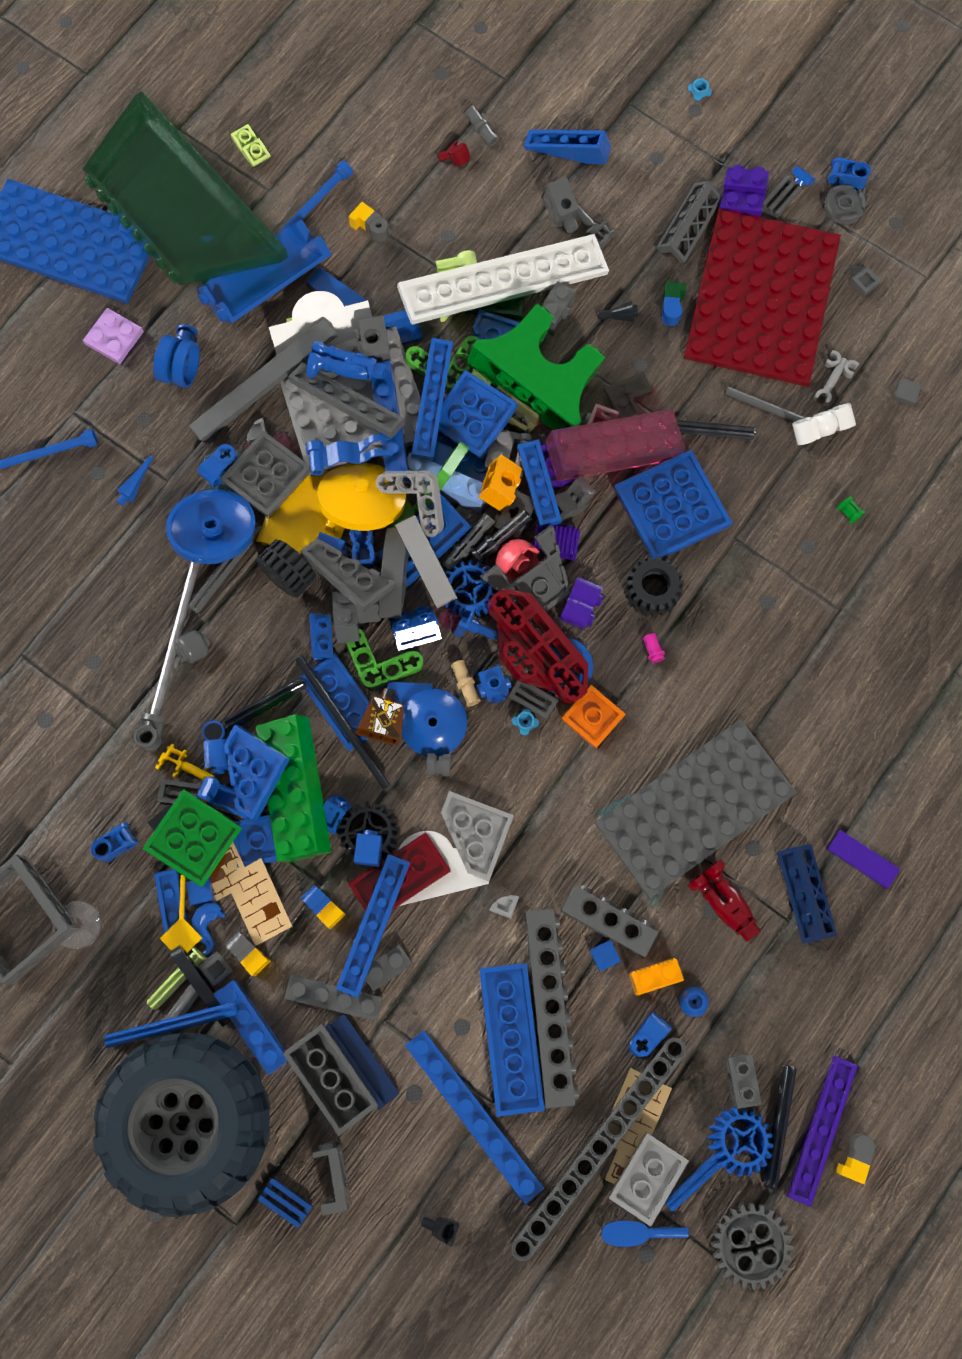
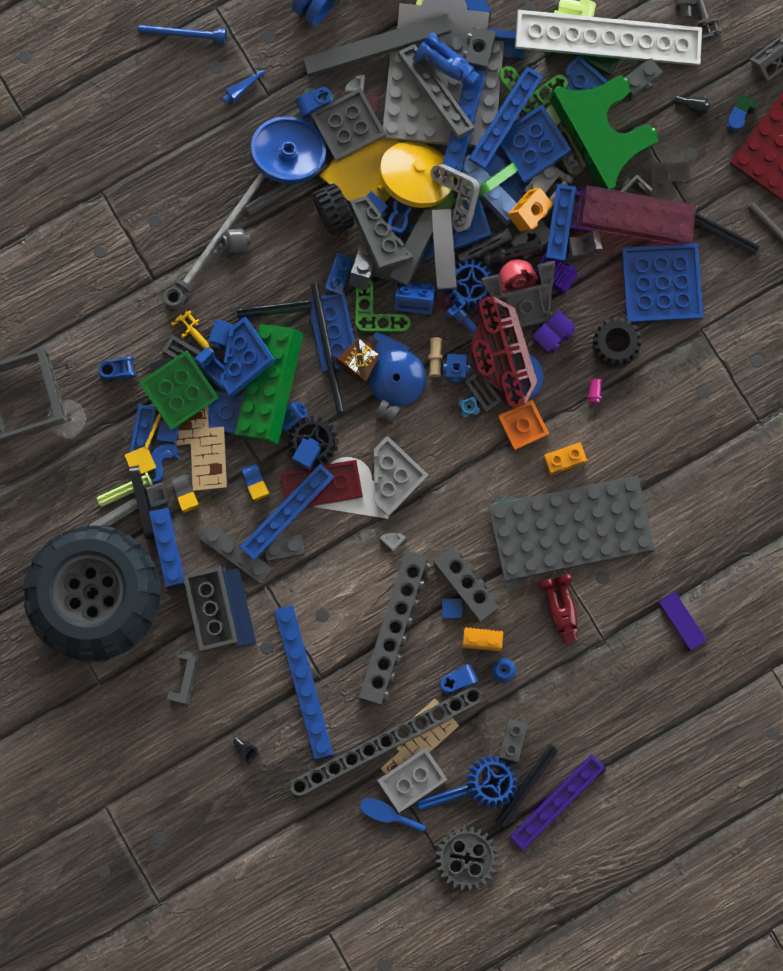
camera: 25 degrees right, 5 degrees up
(170, 1025) = (111, 521): blue axle -> none
(213, 730) = (226, 314): black tile -> none
(268, 1191) = (132, 670): blue tile -> none
(342, 451) = (415, 133): blue flag -> none
(511, 1040) = (355, 638): blue plate -> none
(655, 734) = (565, 459): none -> light orange brick
(804, 893) = (623, 627): dark blue fence -> none
(858, 1159) = (579, 827): leg -> none

